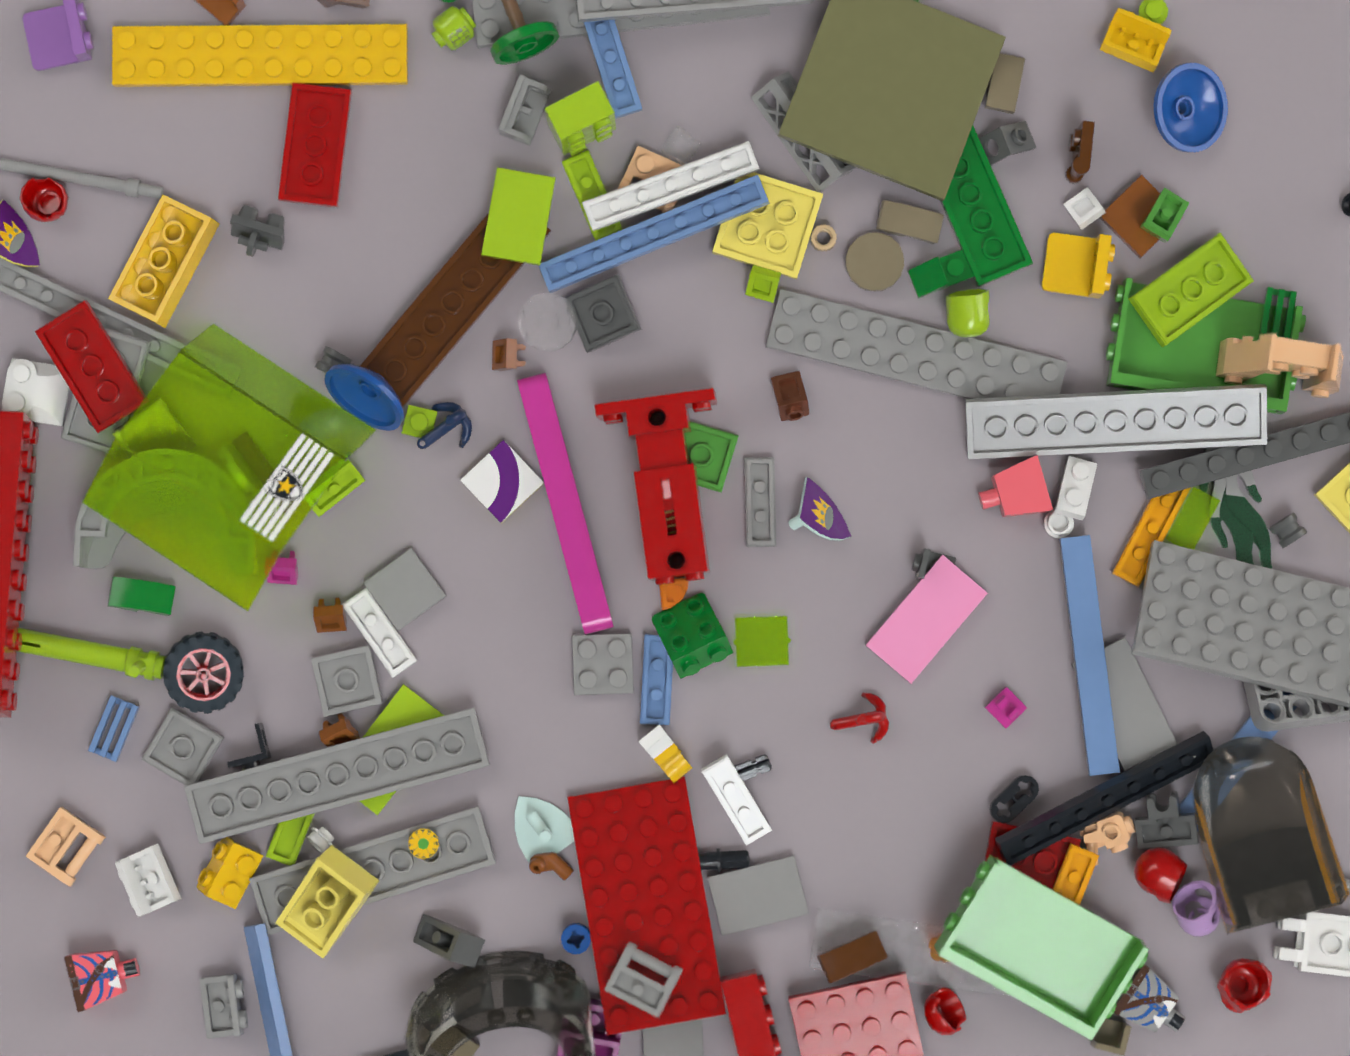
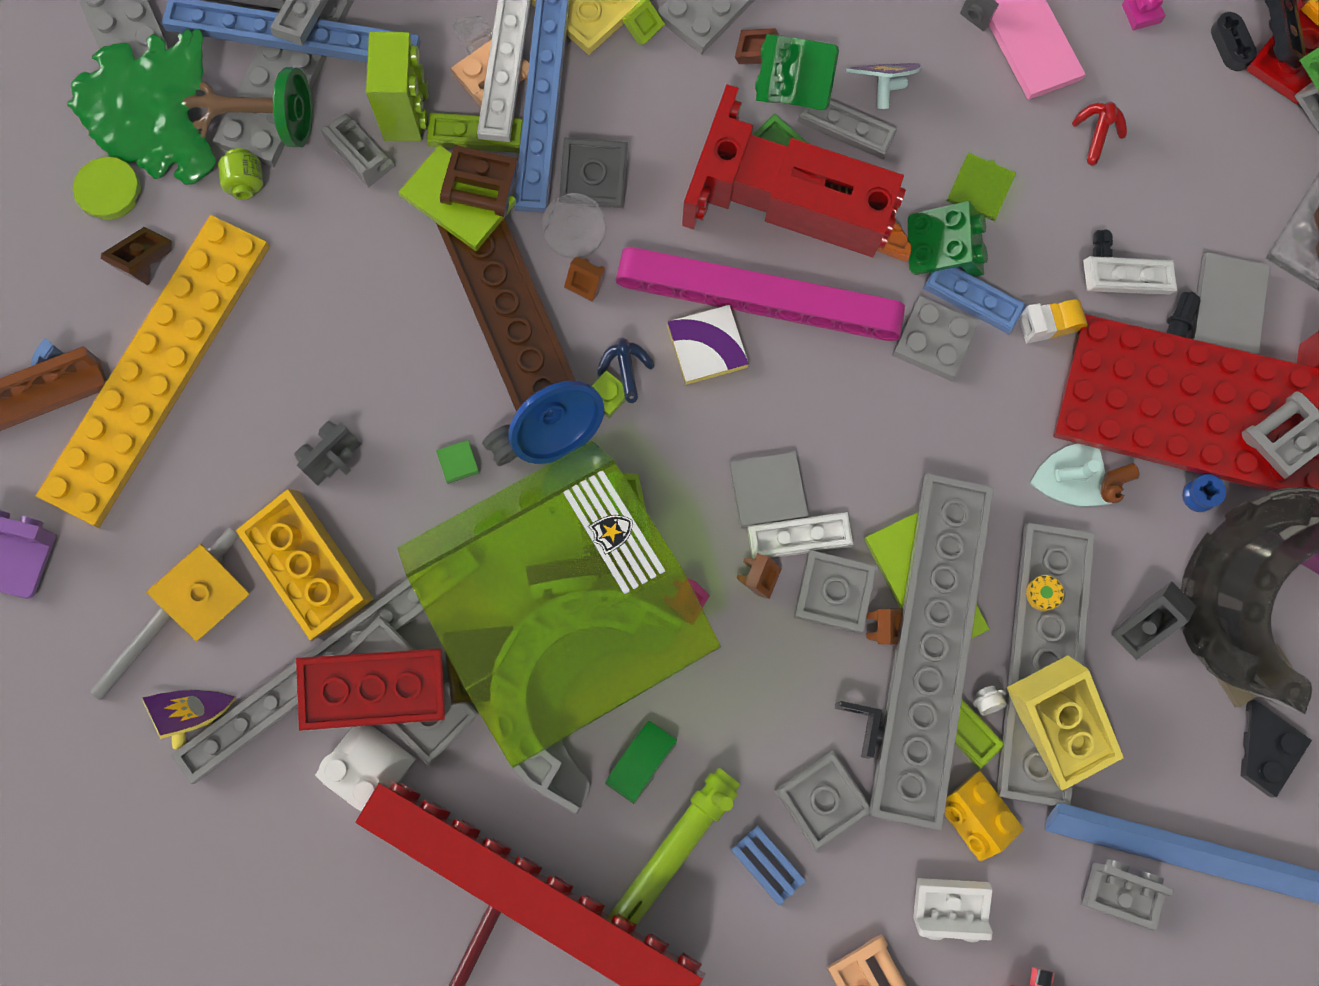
camera: 65 degrees left, 10 degrees down
(44, 199) = (168, 654): red hair -> none
(101, 194) = (198, 592): none -> yellow plate
(206, 701) = (788, 741): black wheel -> none
(304, 334) = (457, 461): none -> bright green tile
(315, 145) = (275, 357): red plate -> none
(545, 228) = (479, 170): none -> reddish brown plate
(774, 435) = (796, 71): none -> green bracket

